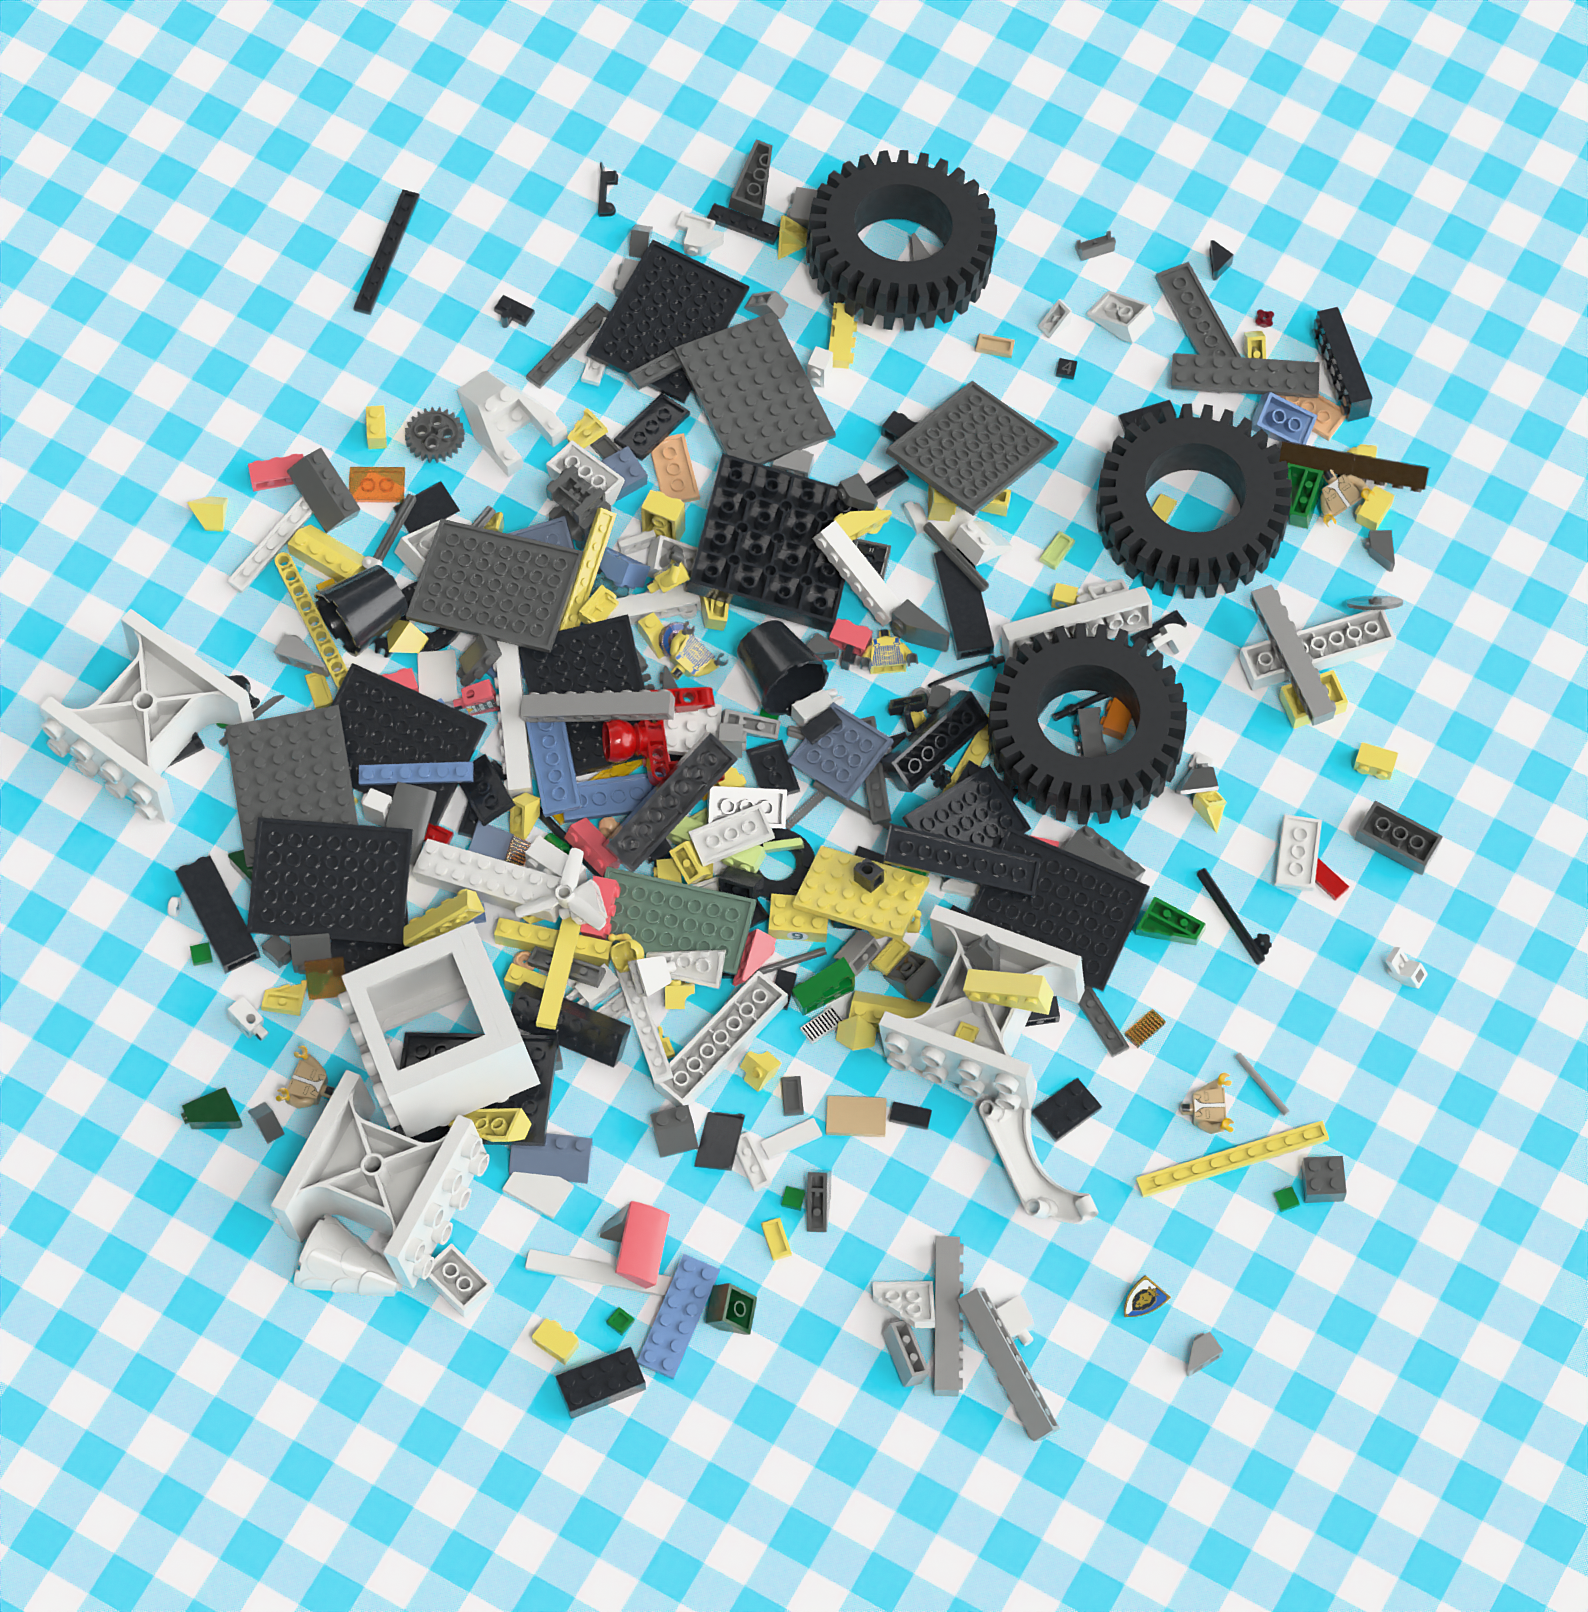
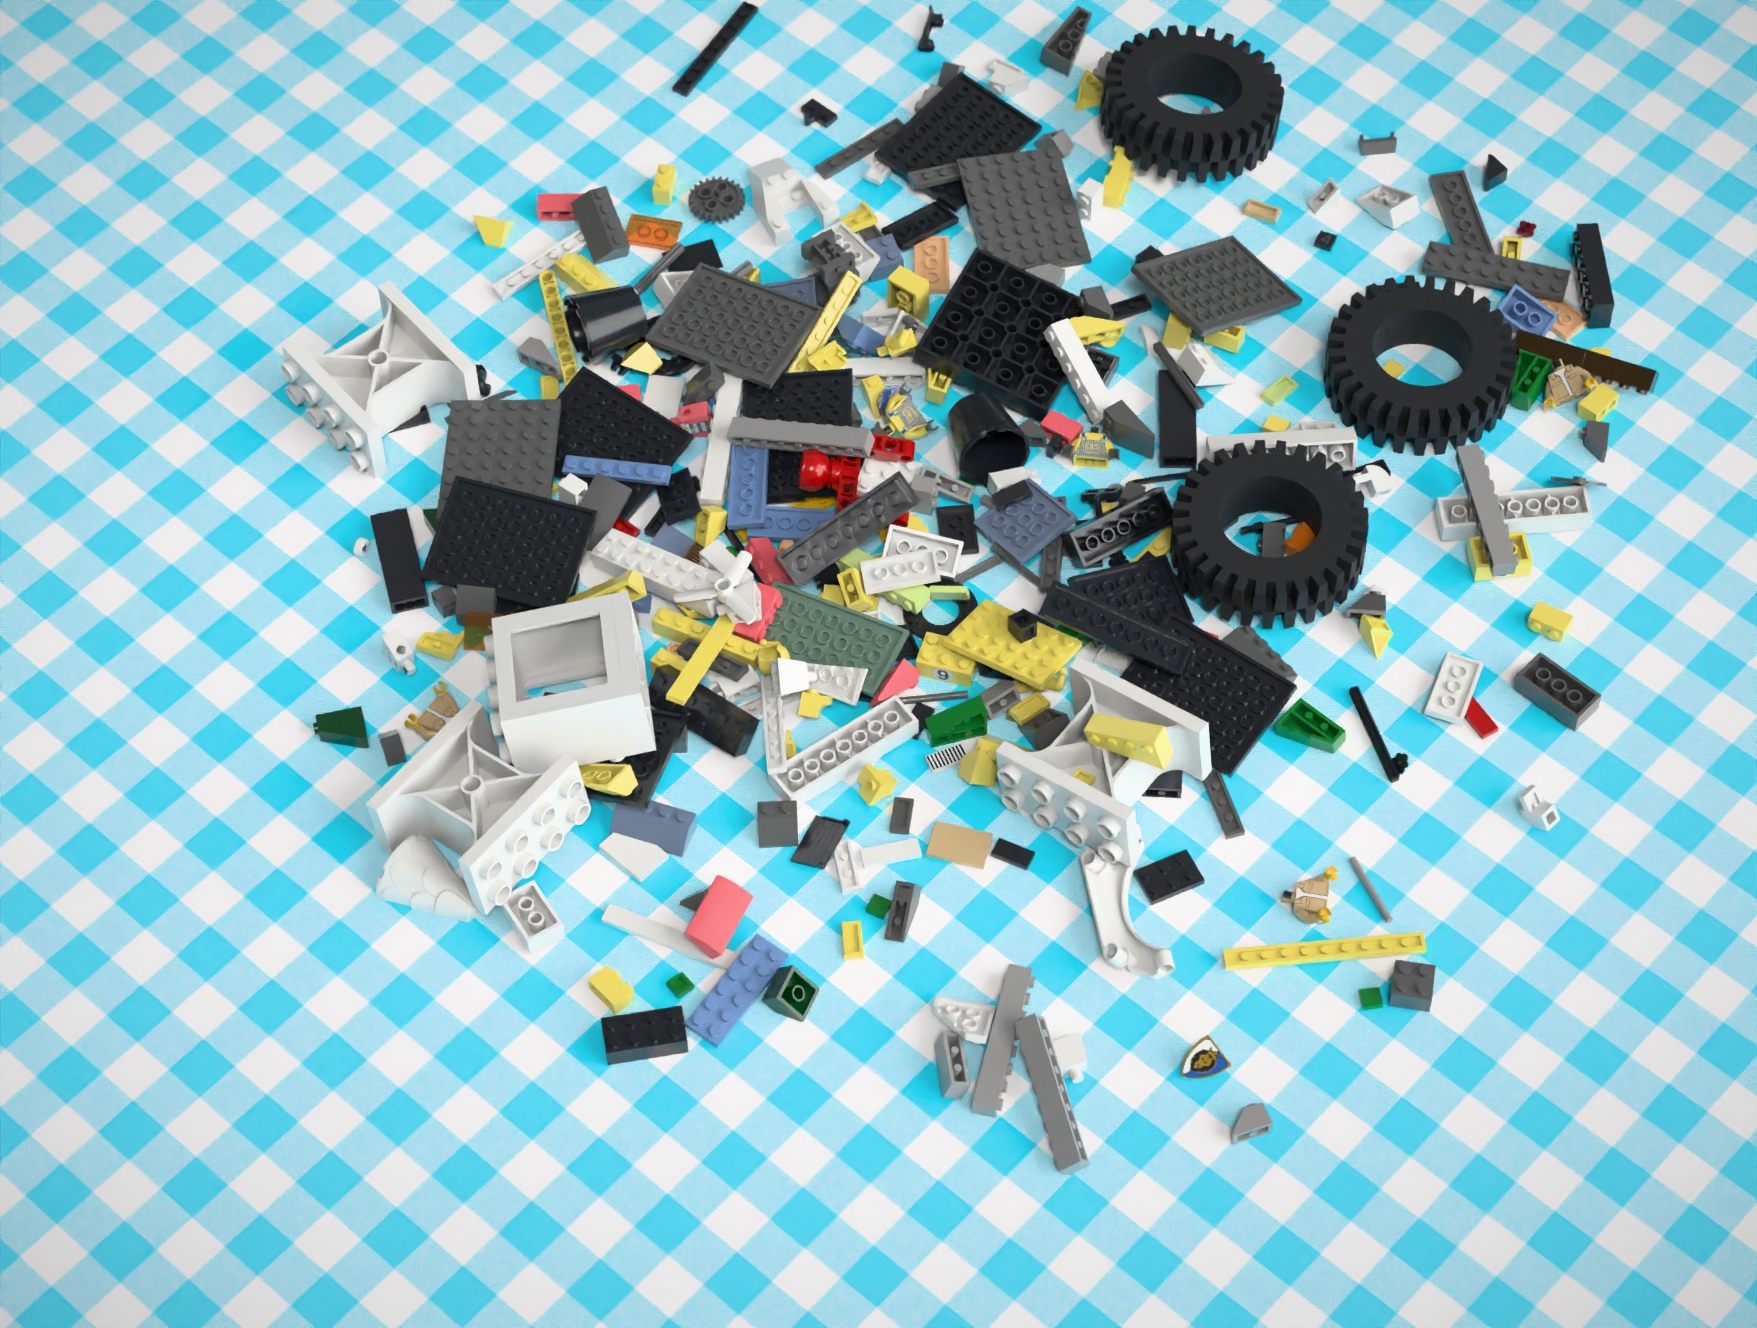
camera: 15 degrees right, 10 degrees down
(201, 954) = (374, 592): green tile -> none
(741, 883) = (900, 616): black brick -> none
(744, 224) = (1050, 76): black plate -> none
(984, 954) = (1115, 705): dark grey slope -> none
(1145, 1028) = (1265, 818): clear orange tile -> none

